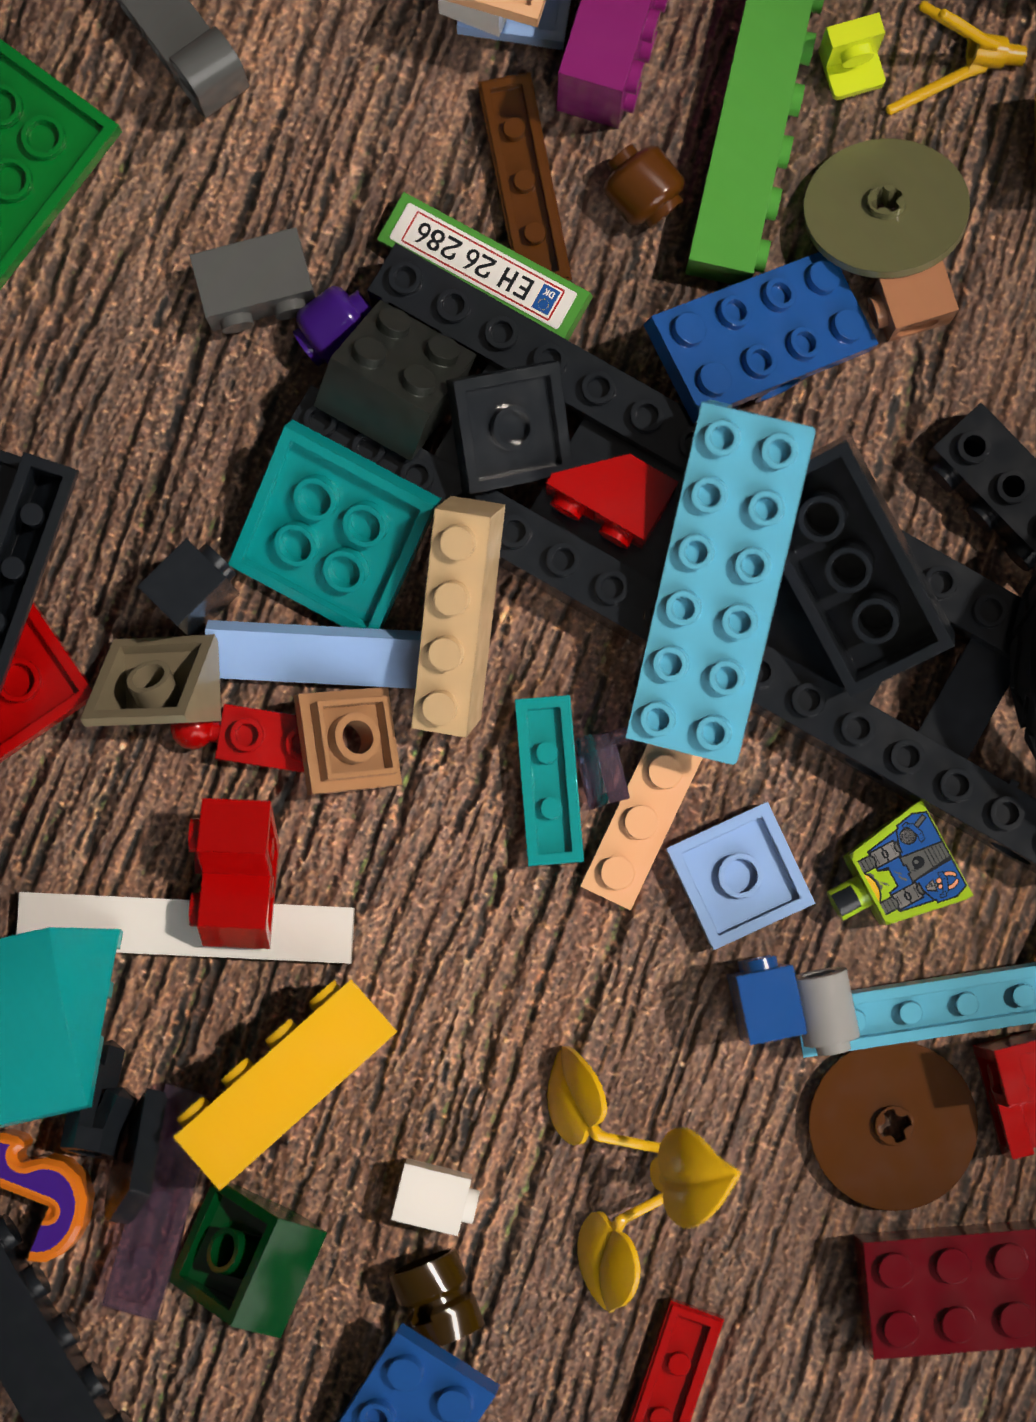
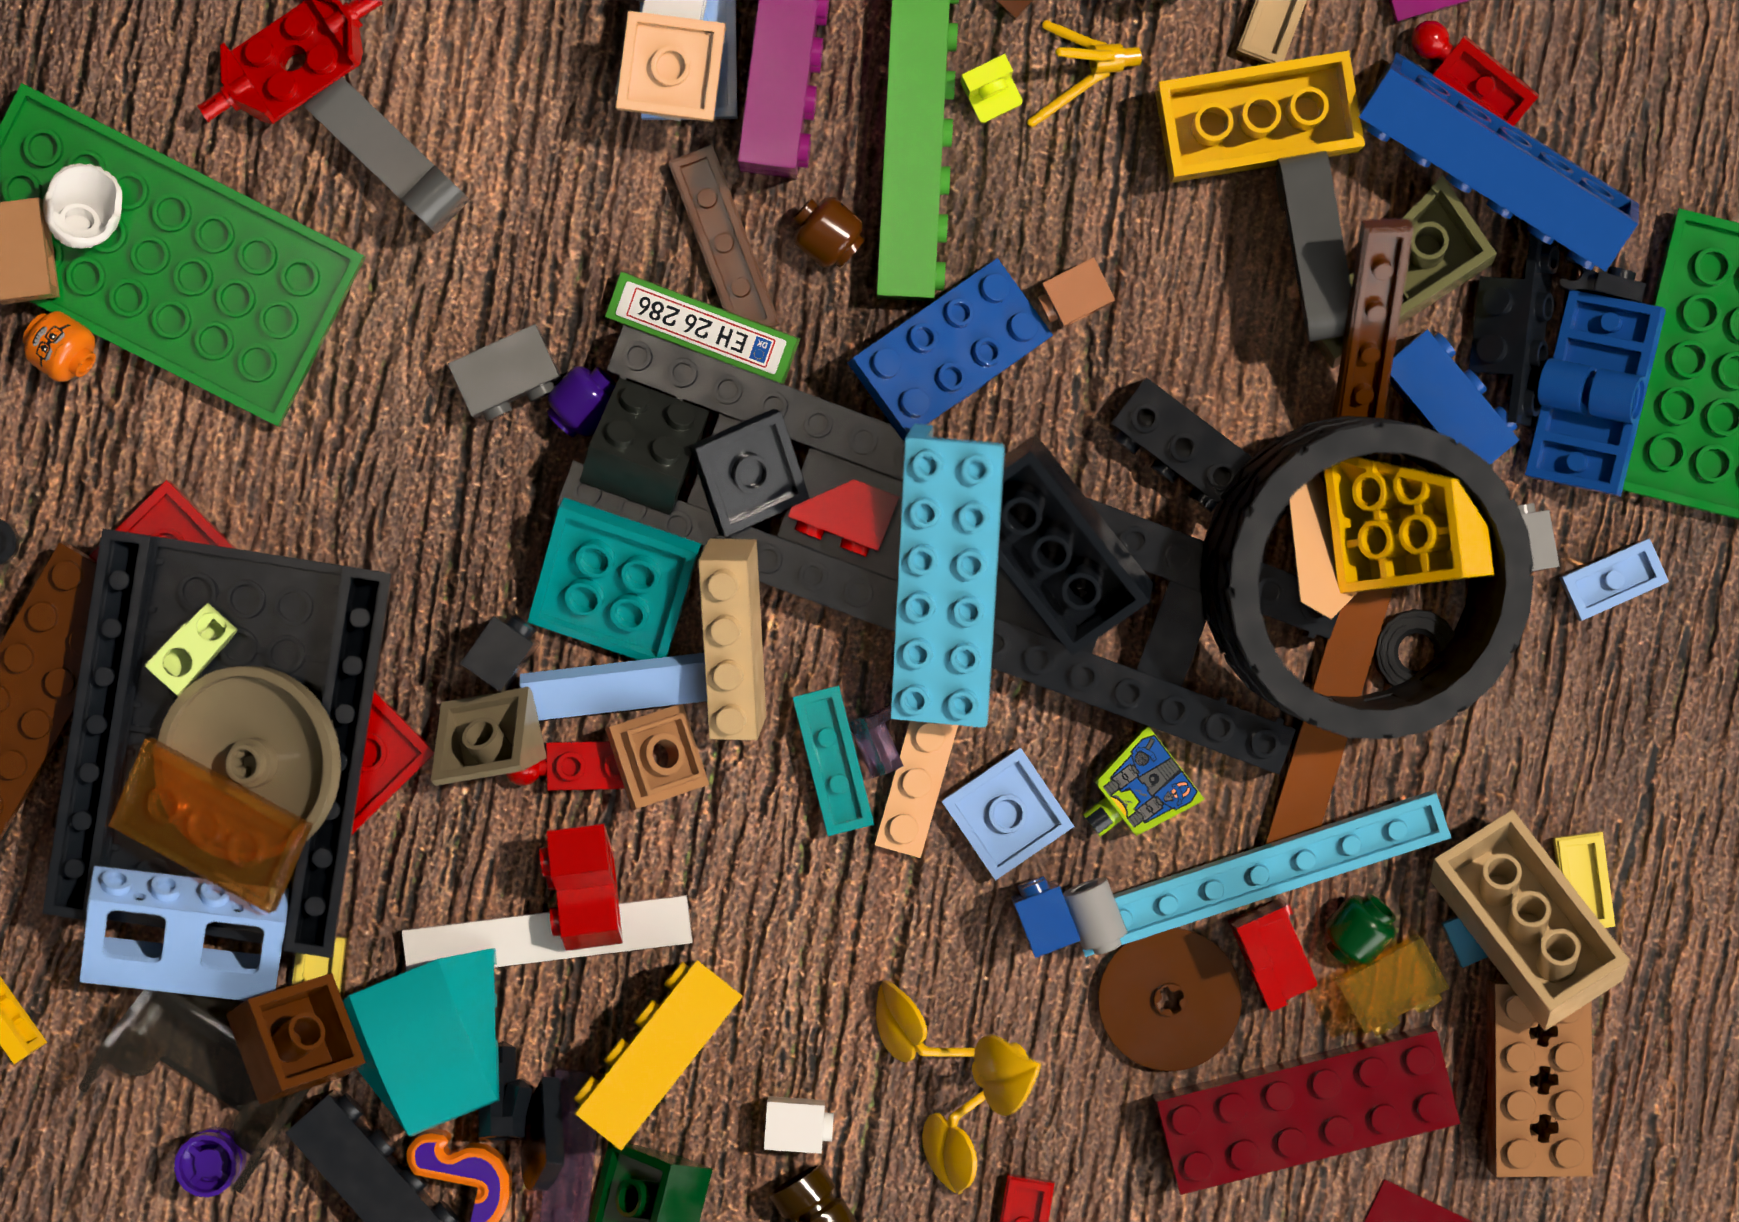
camera: 10 degrees left, 5 degrees up
(879, 243) = (1048, 183): olive piece -> none

